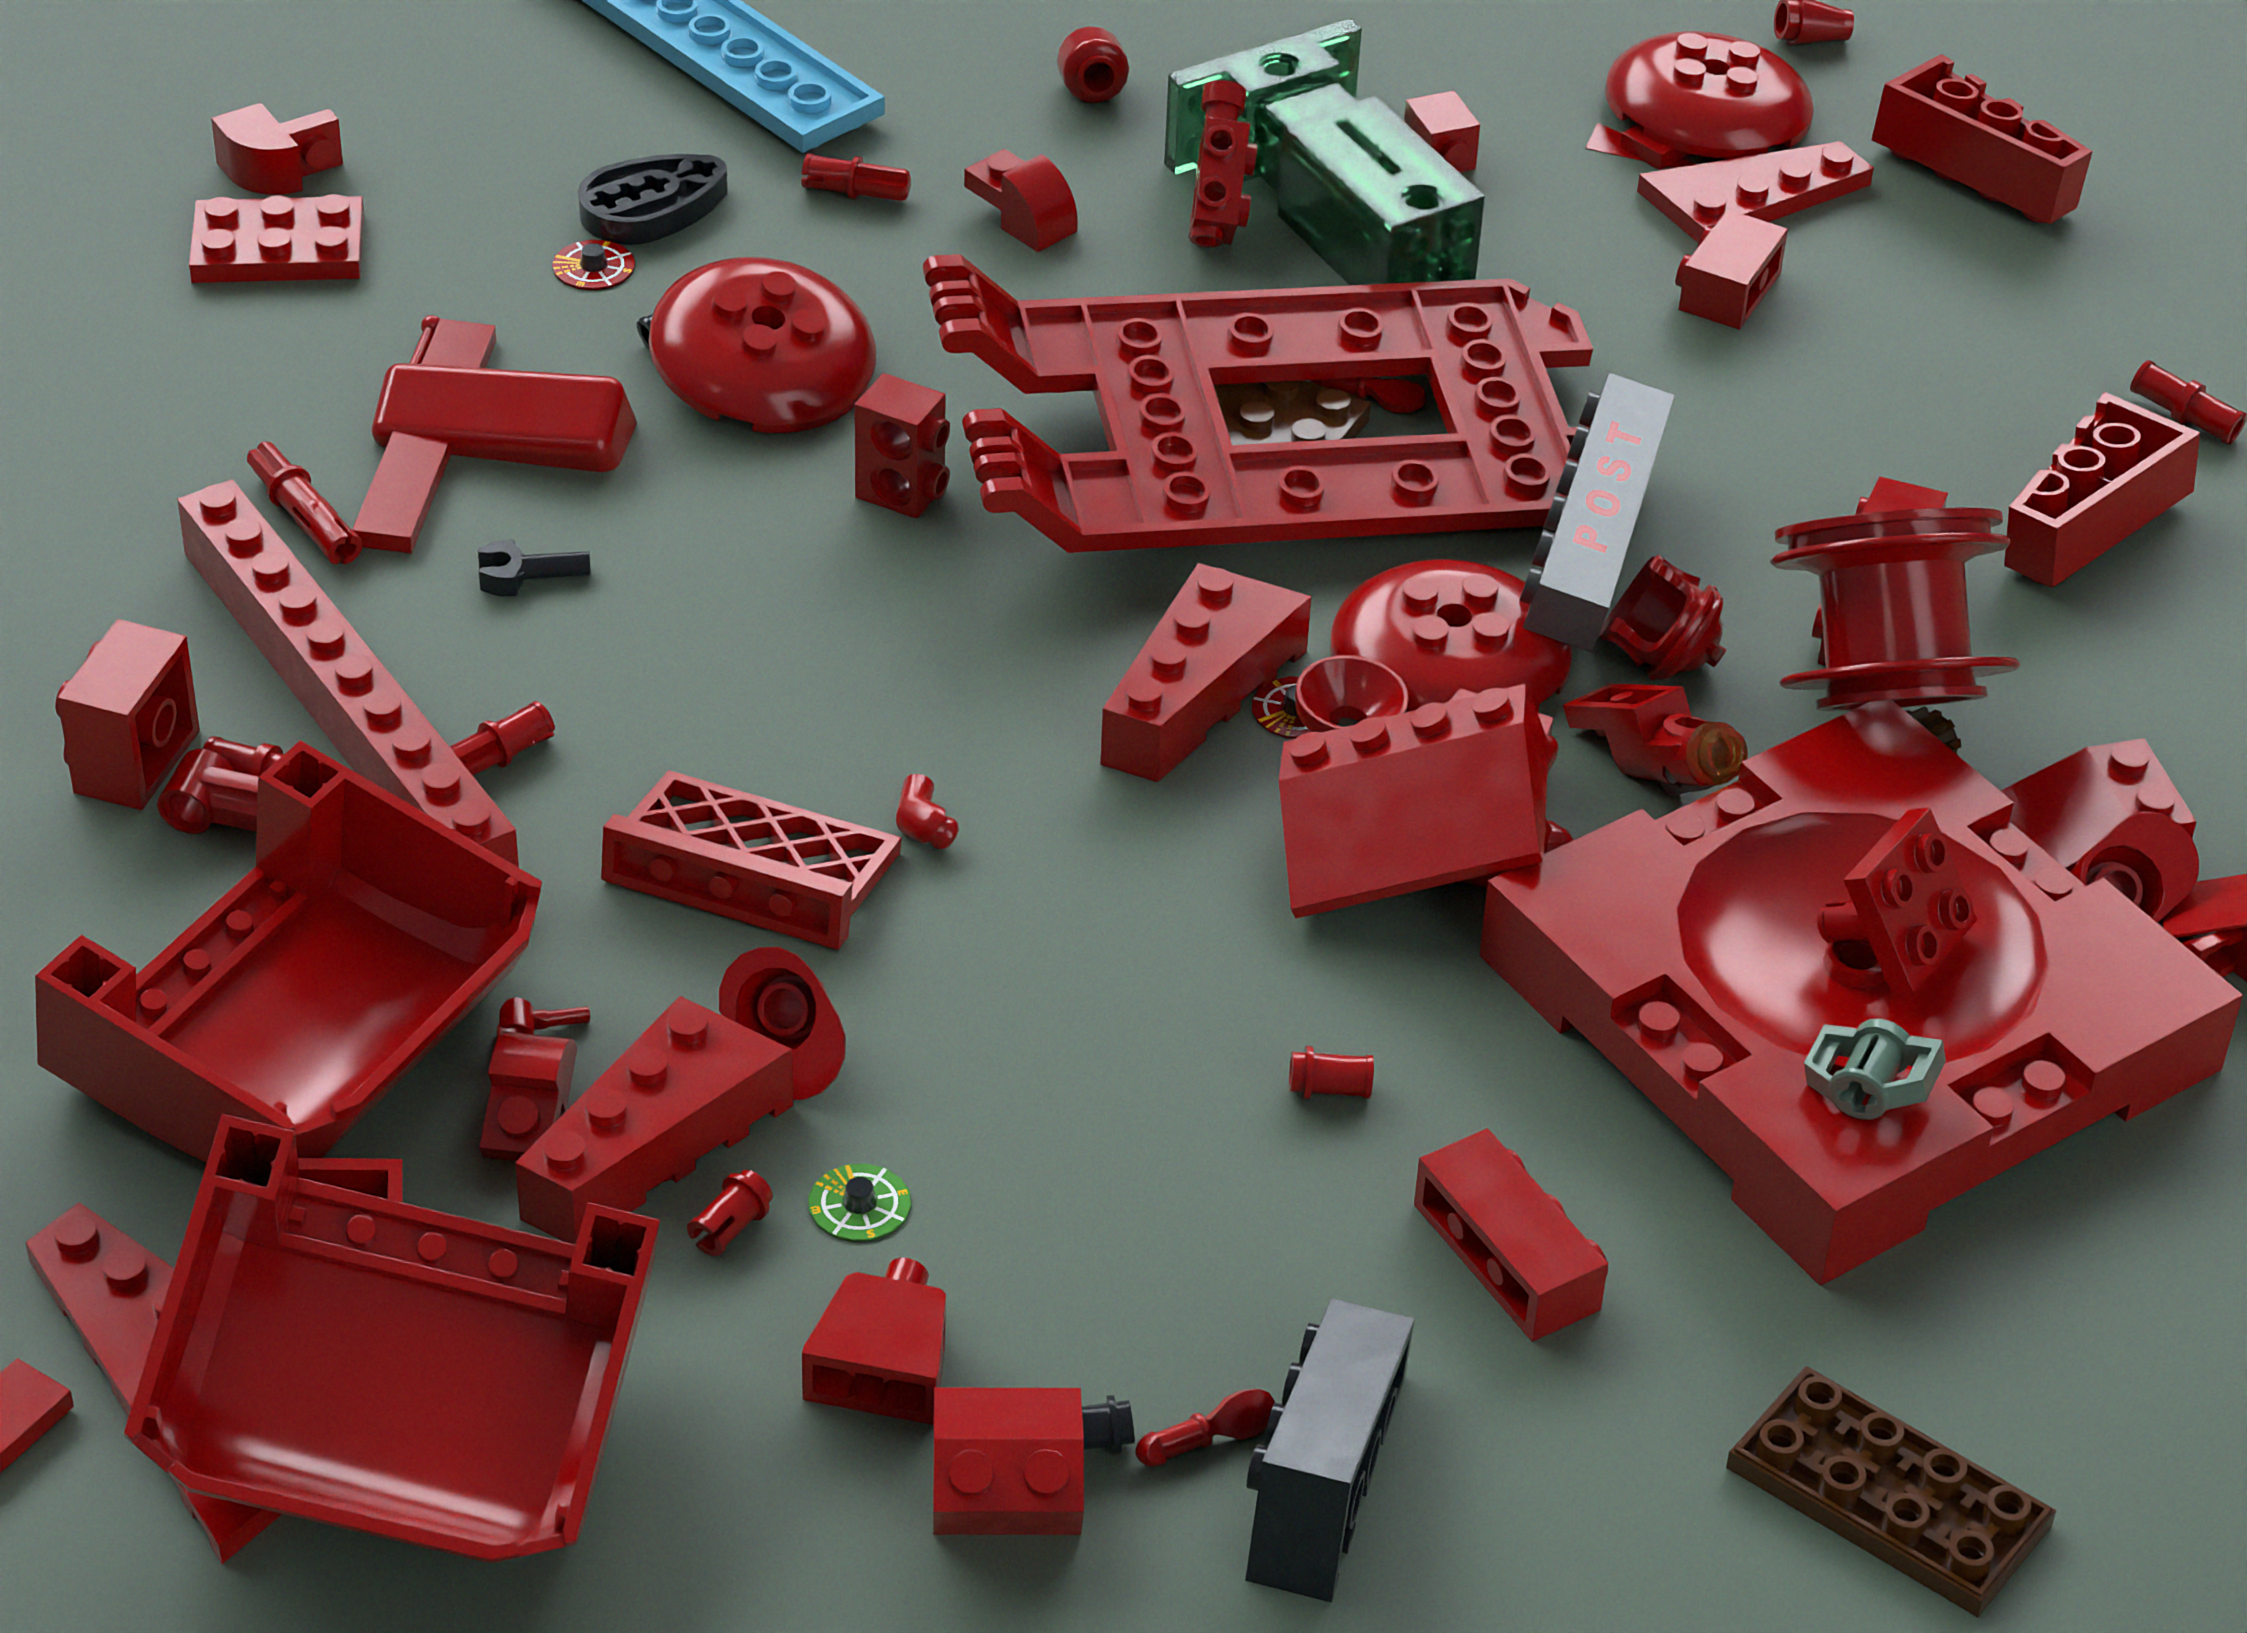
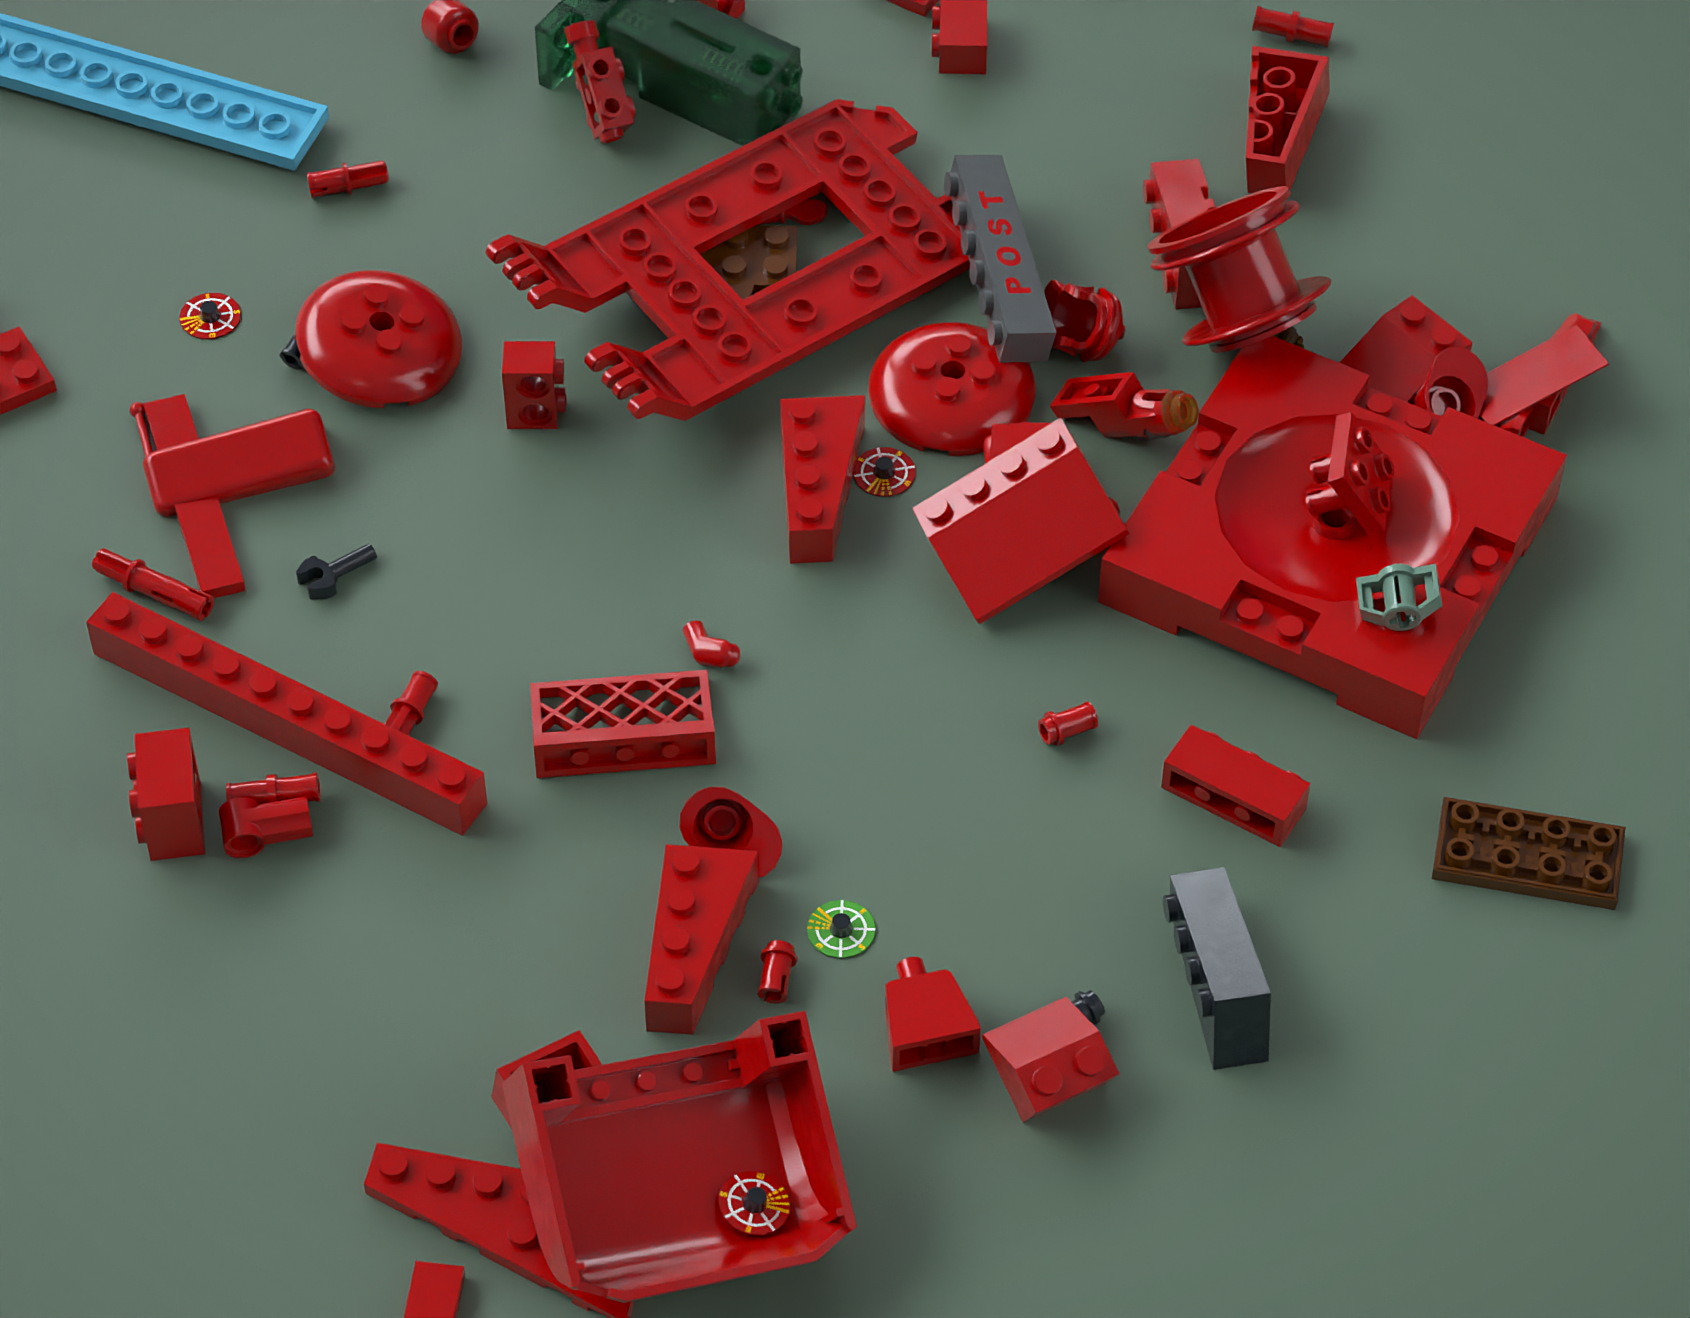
camera: 25 degrees left, 10 degrees up
(304, 979) = (426, 933): red slope -> none
(487, 1470) = (754, 1203): none -> red piece
(520, 1017) = (560, 899): red hand -> none
(527, 1091) = (604, 949): red brick -> none
(650, 196) = (228, 260): black piece -> none
(1030, 194) = (480, 150): red brick -> none
(1237, 1416) = (1150, 972): red piece -> none
(1349, 689) = (929, 447): red piece -> none

